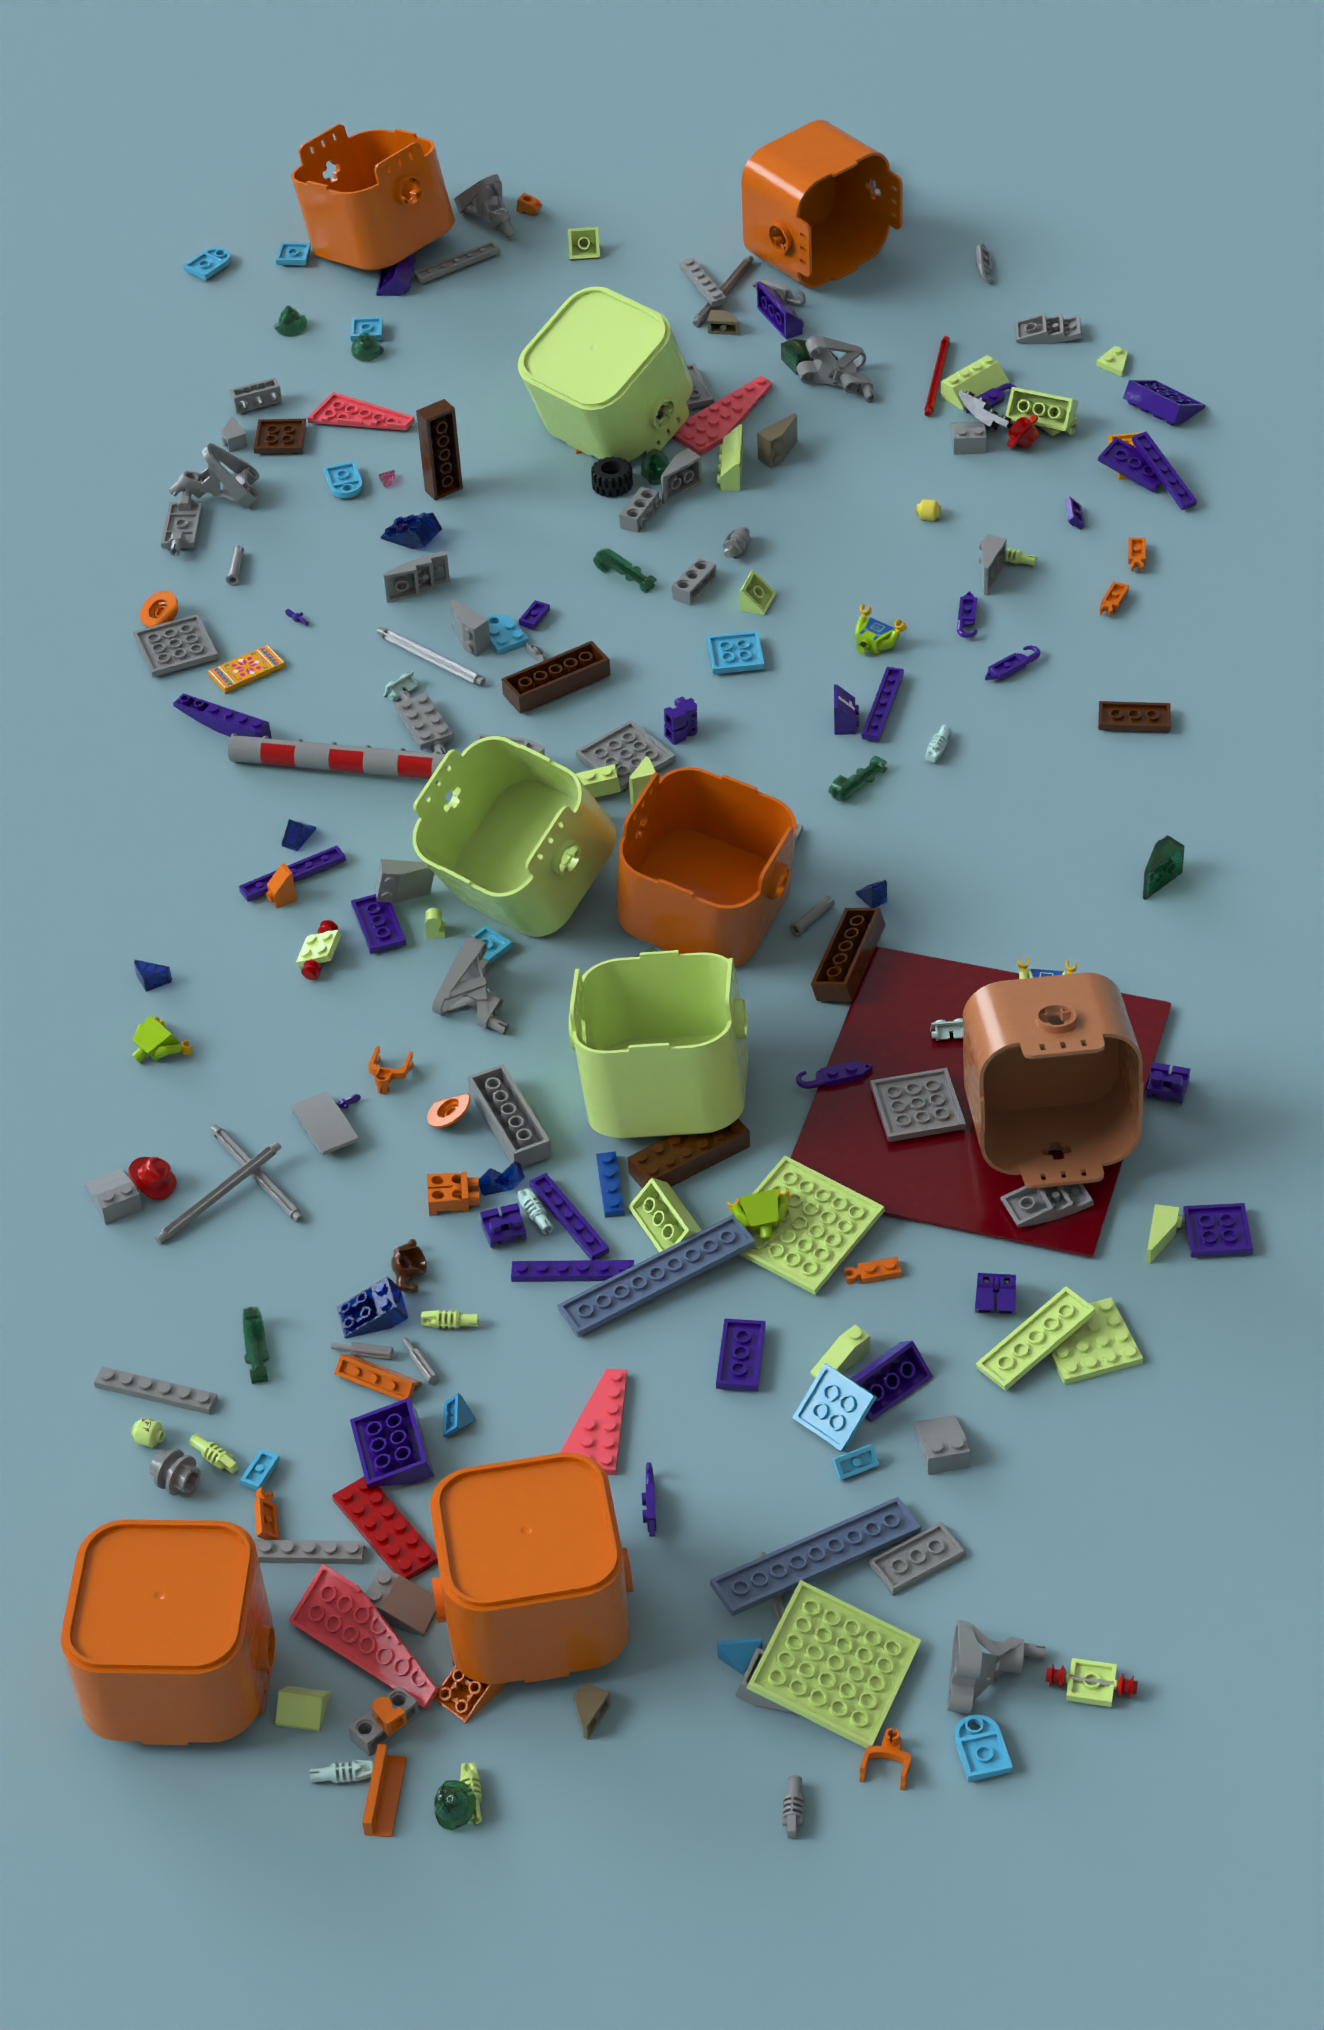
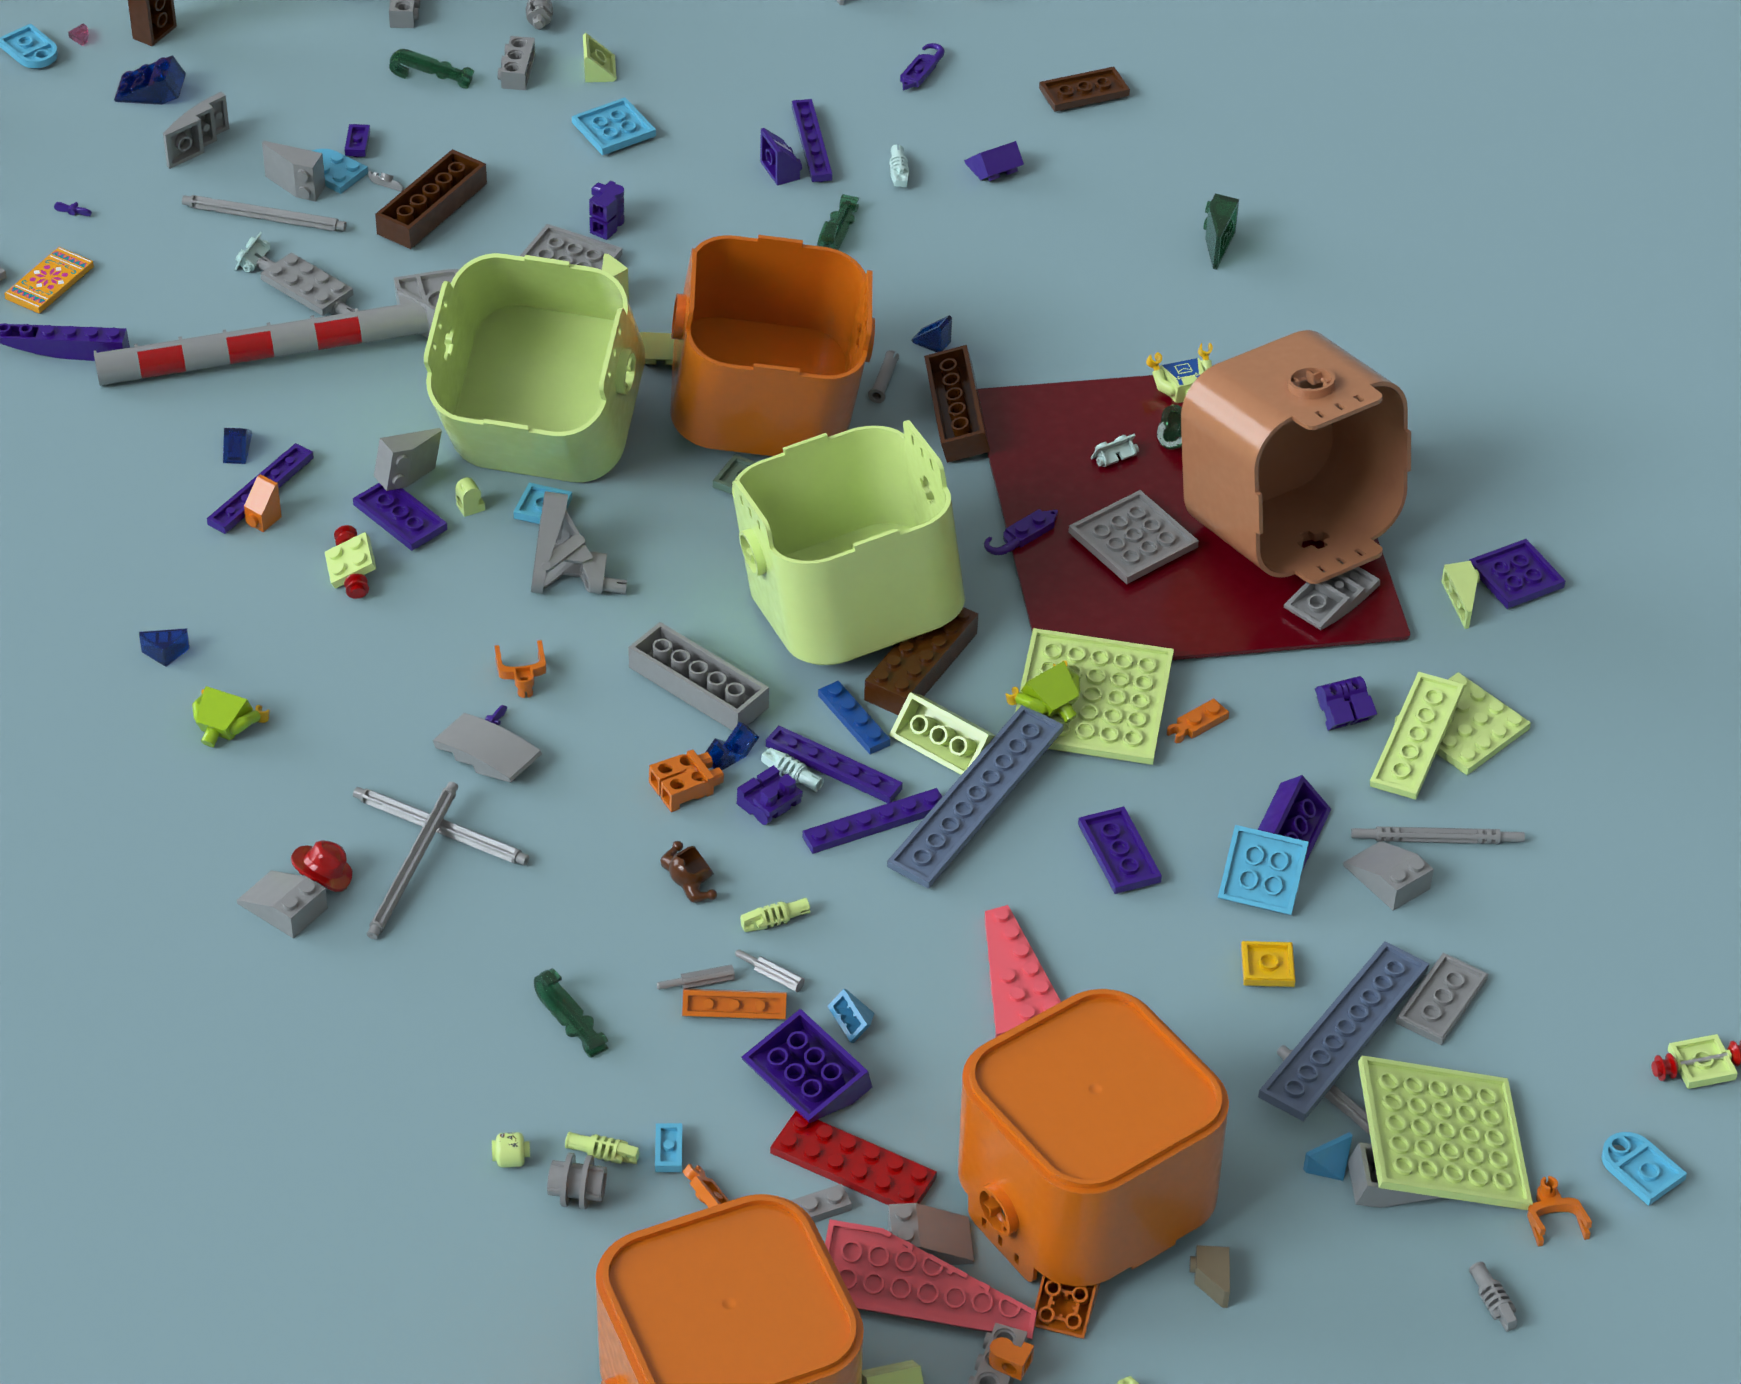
camera: 30 degrees left, 0 degrees up
(156, 1390) = (482, 1101): light grey plate -> none
(373, 1309) = (680, 932): clear blue slope -> none
(448, 1111) = (624, 691): hat -> none
(795, 1483) = (1268, 963): none -> yellow plate
(845, 1351) = (1227, 813): yellowish green slope -> none
(855, 1461) = (1316, 920): medium azure plate -> none
(875, 635) = (757, 72): lime torso -> none
(967, 615) = (839, 28): dark purple plate -> none
(974, 1670) = (1602, 1069): light grey connector -> none
(1003, 1425) = (1440, 835): none -> light grey axle
(1018, 760) = (996, 161): none -> dark purple slope

